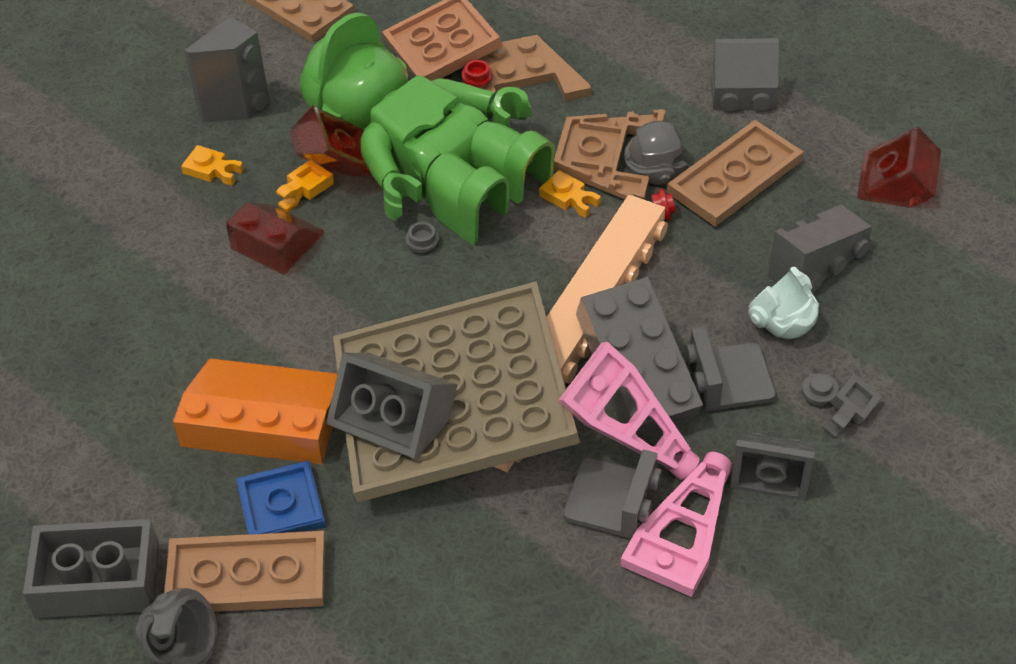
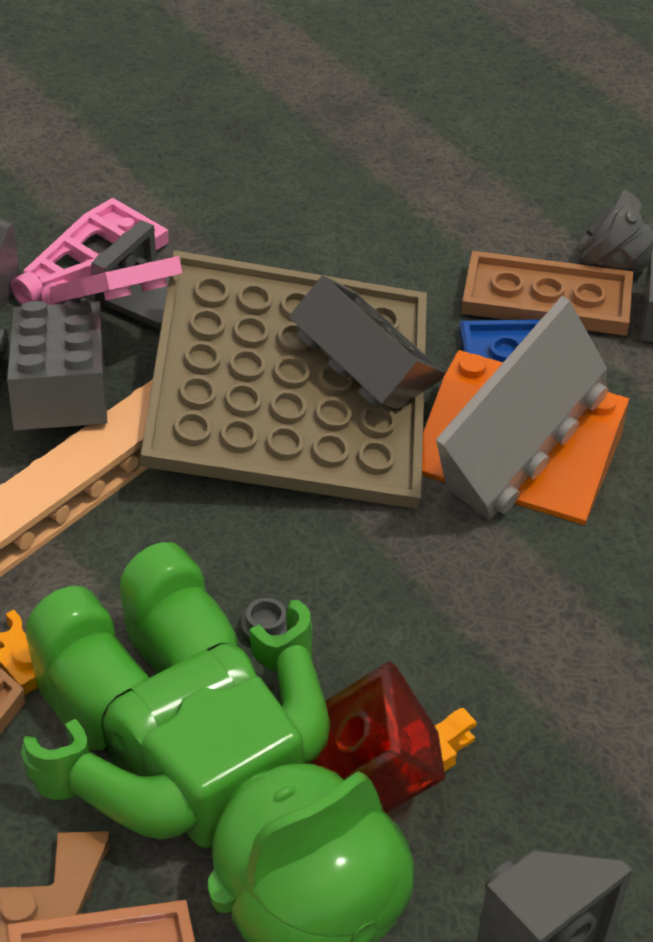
camera: 170 degrees left, 5 degrees down
(208, 163) = (583, 832): light orange plate -> none
(257, 344) = (523, 413): none -> light grey slope
(271, 235) = (486, 662): clear red slope -> none
(477, 73) = (77, 890): red plate -> none

